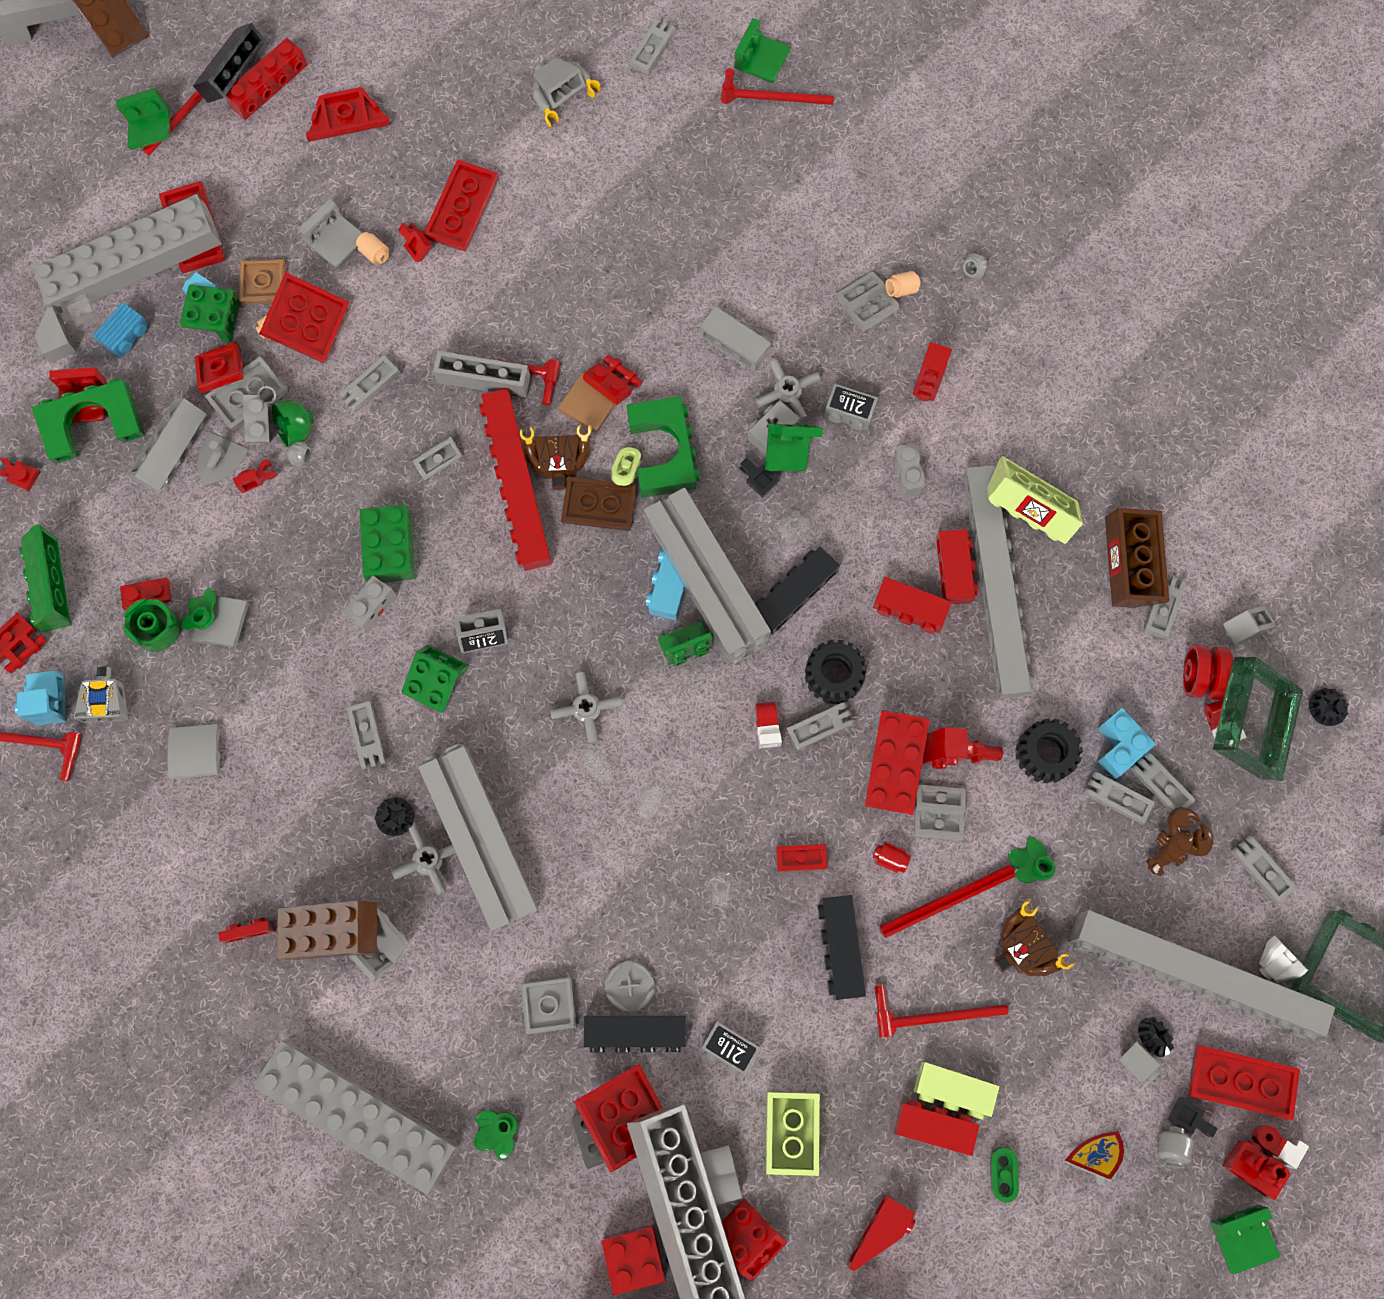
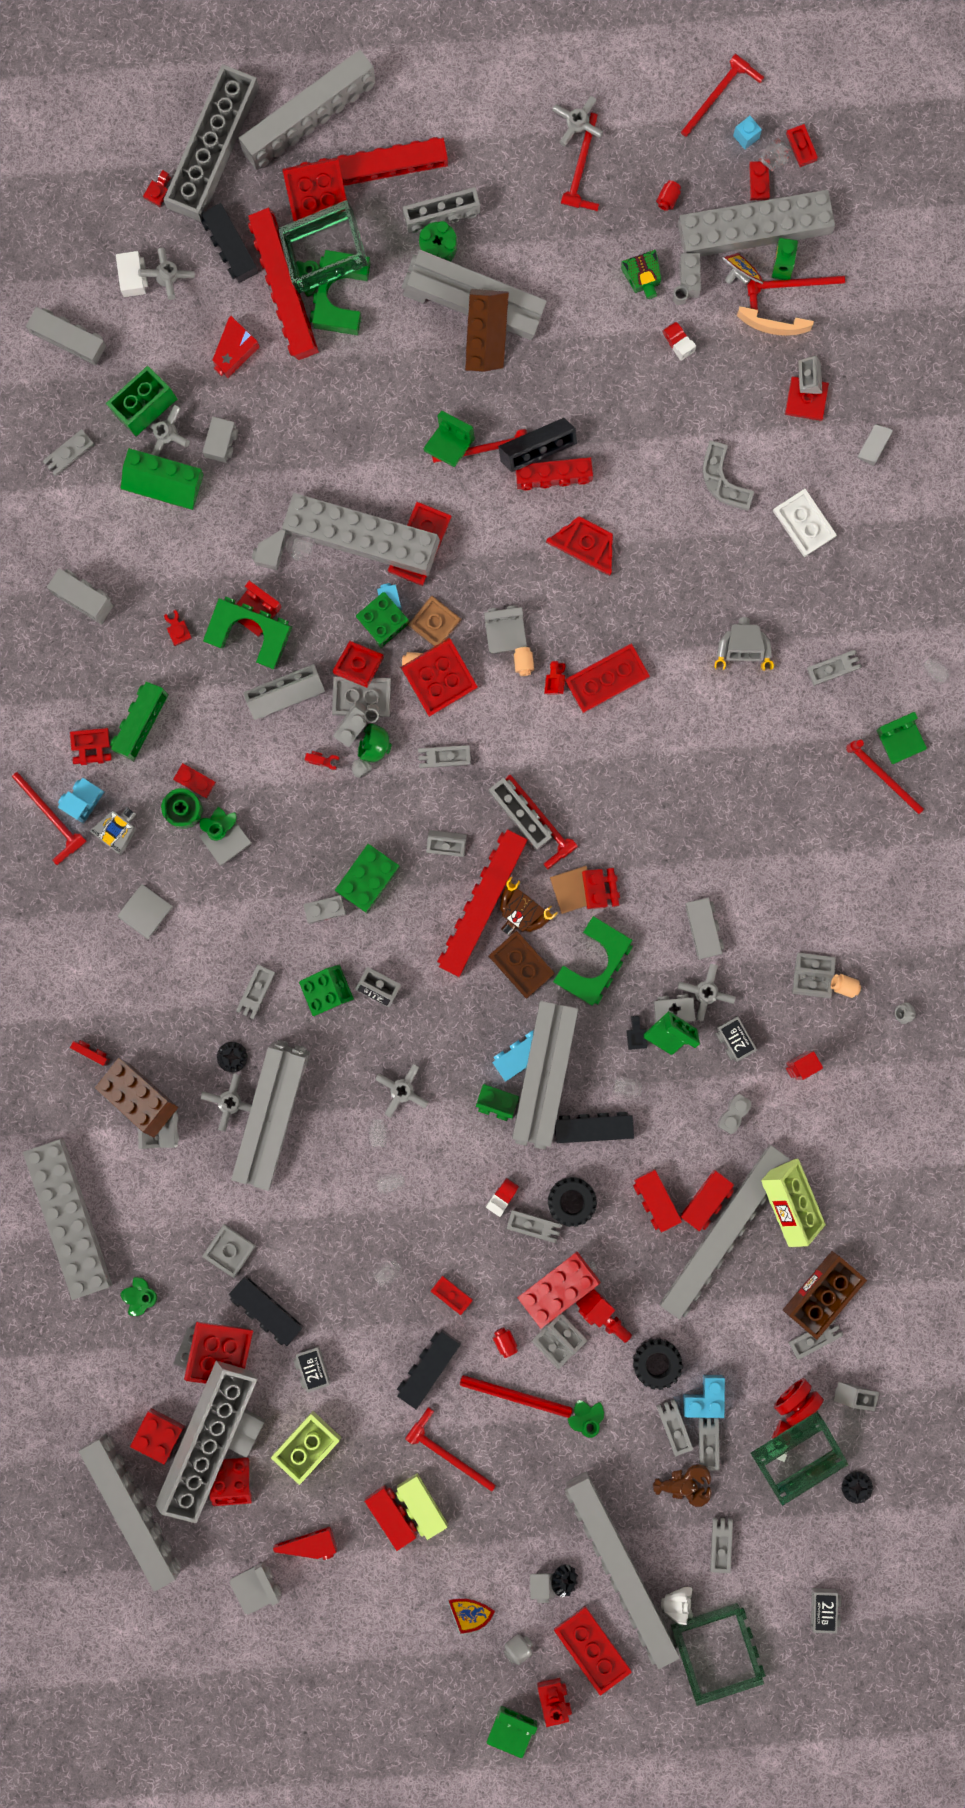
camera: 45 degrees right, 10 degrees up
(121, 330) = (316, 583): dark azure brick -> none
(218, 458) = (309, 725): light grey shield -> none
(626, 466) = (557, 957): yellowish green plate -> none
(629, 986) = (285, 1280): light grey tile -> none
(1004, 1174) = (406, 1575): green plate -> none
(1027, 946) = (538, 1465): reddish brown torso -> none
(1190, 1118) = (542, 1641): black plate -> none
(1277, 1146) = (576, 1695): leg -> none

